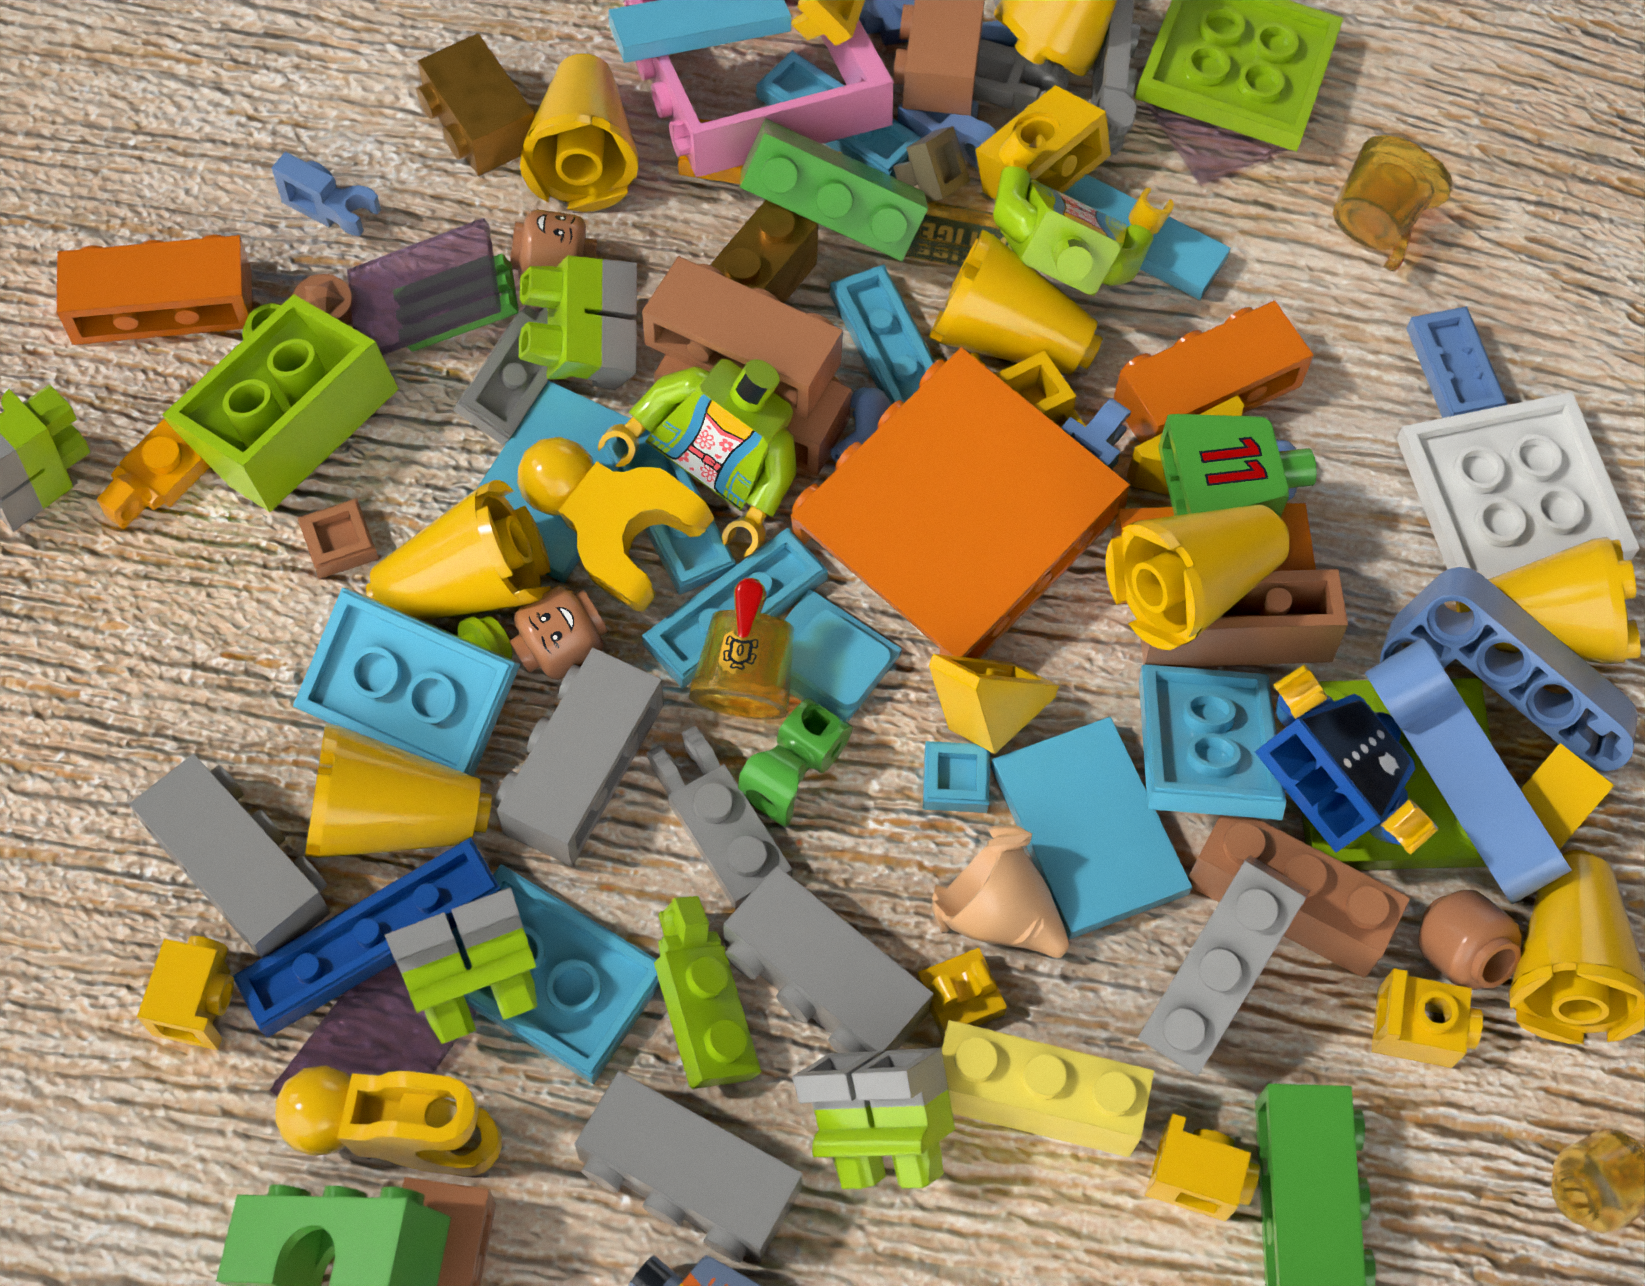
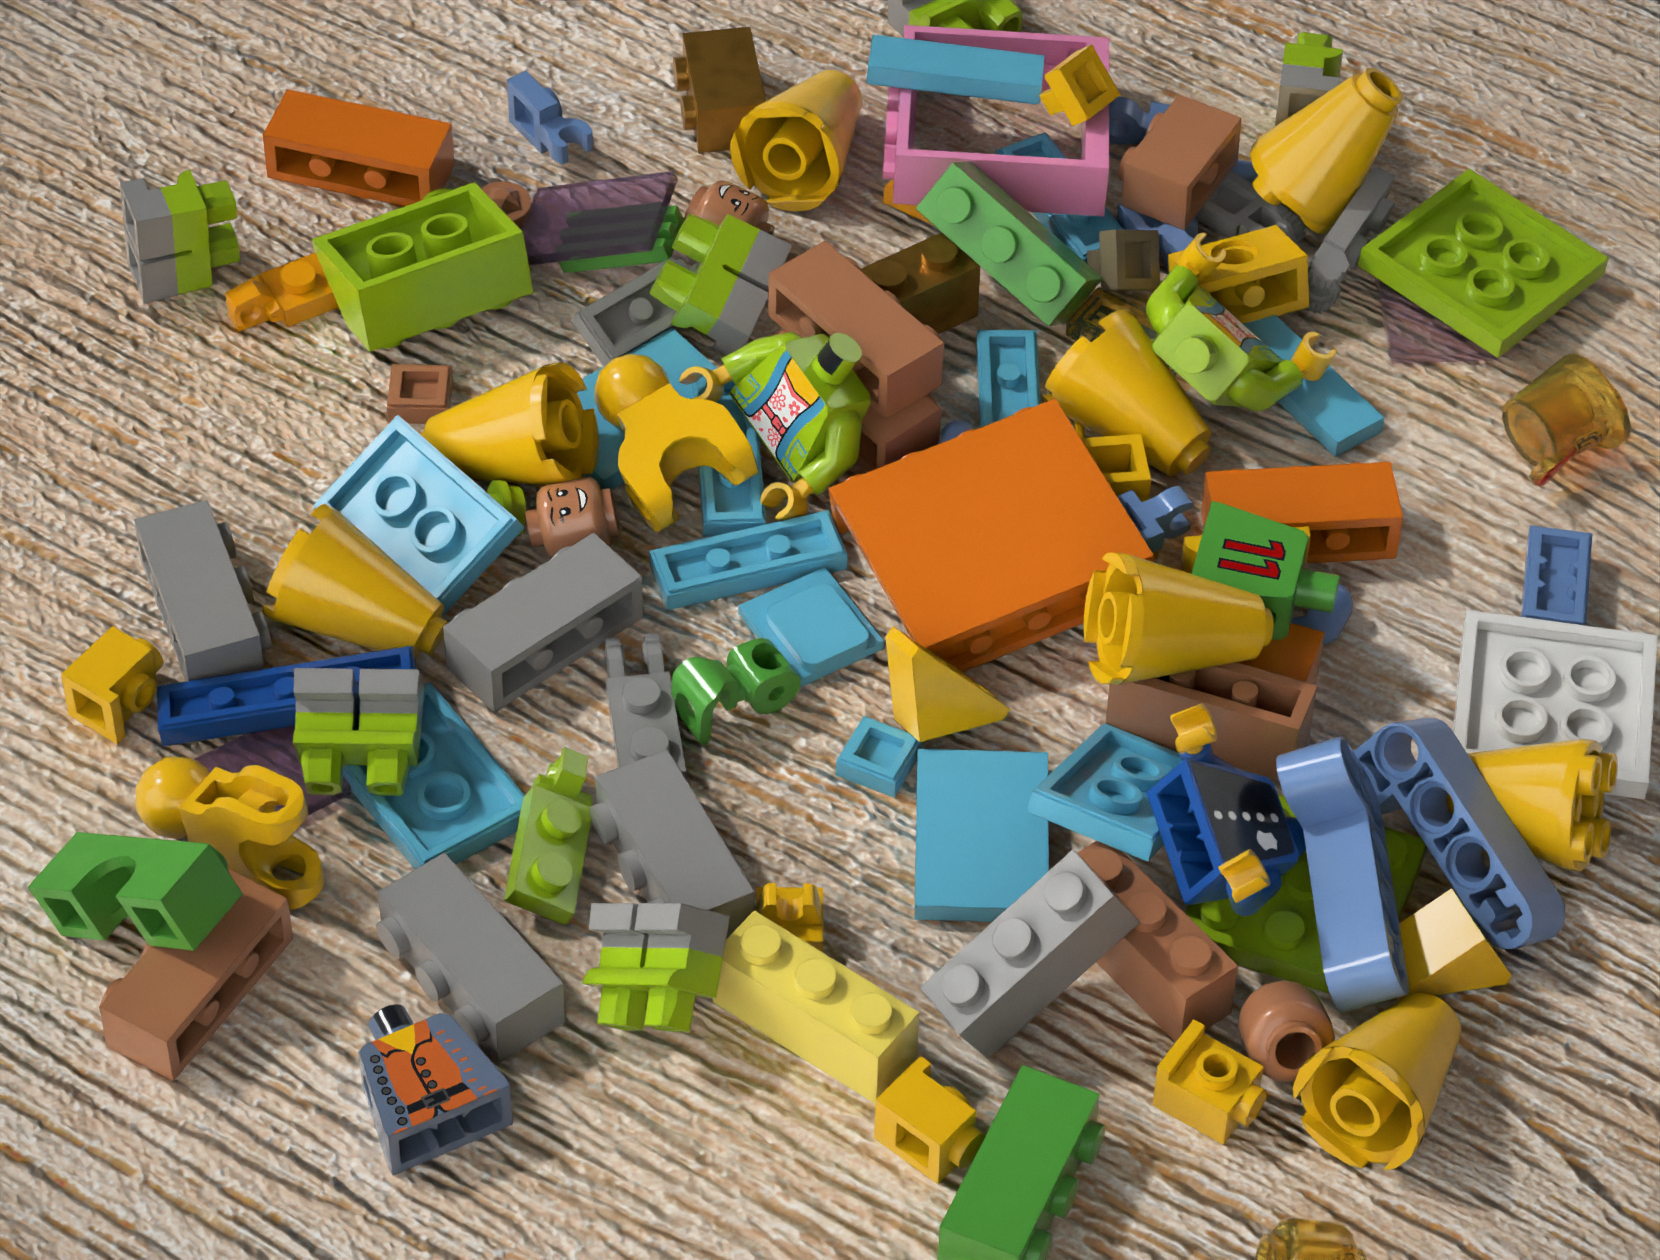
camera: 25 degrees right, 15 degrees down
(745, 659) = (725, 587): clear yellow hat -> none
(1002, 898) = (863, 851): light nougat hat -> none

